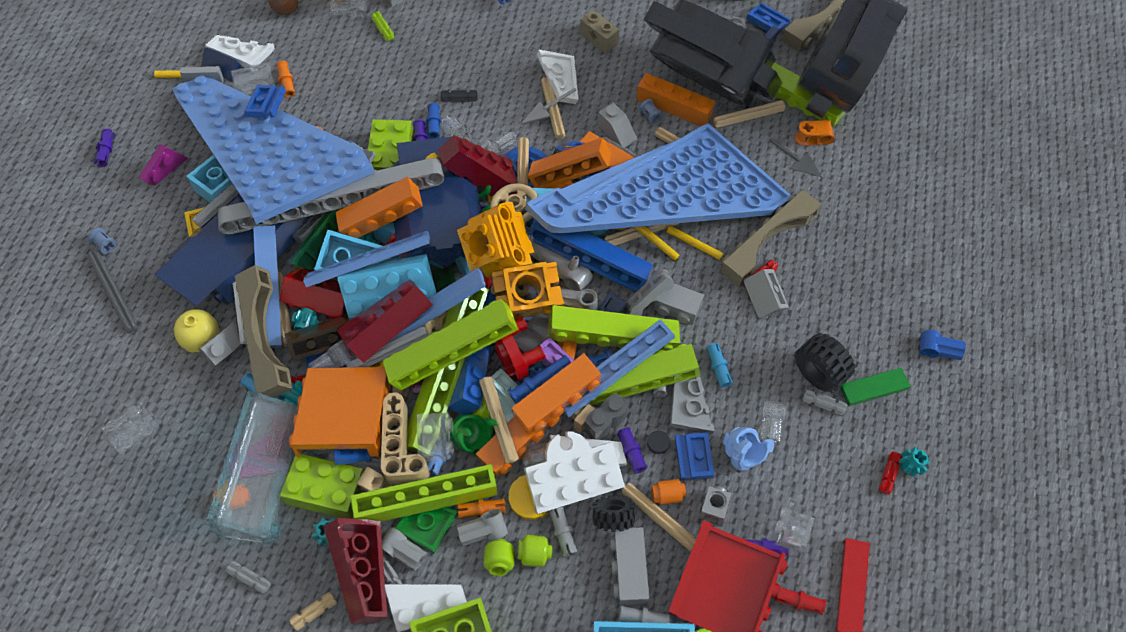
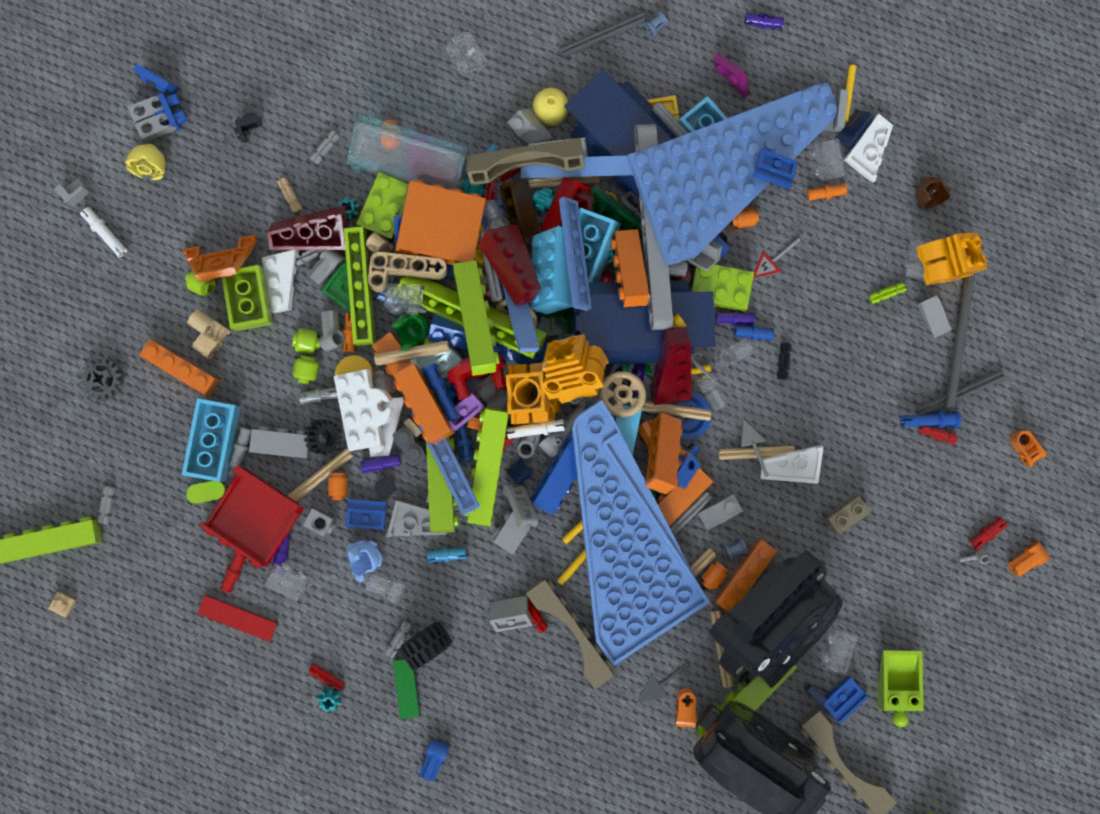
camera: 100 degrees right, 25 degrees up
(362, 121) = (767, 266): none -> piece
(564, 283) = (536, 429): none -> white pin
(680, 124) = (714, 576): none -> orange brick

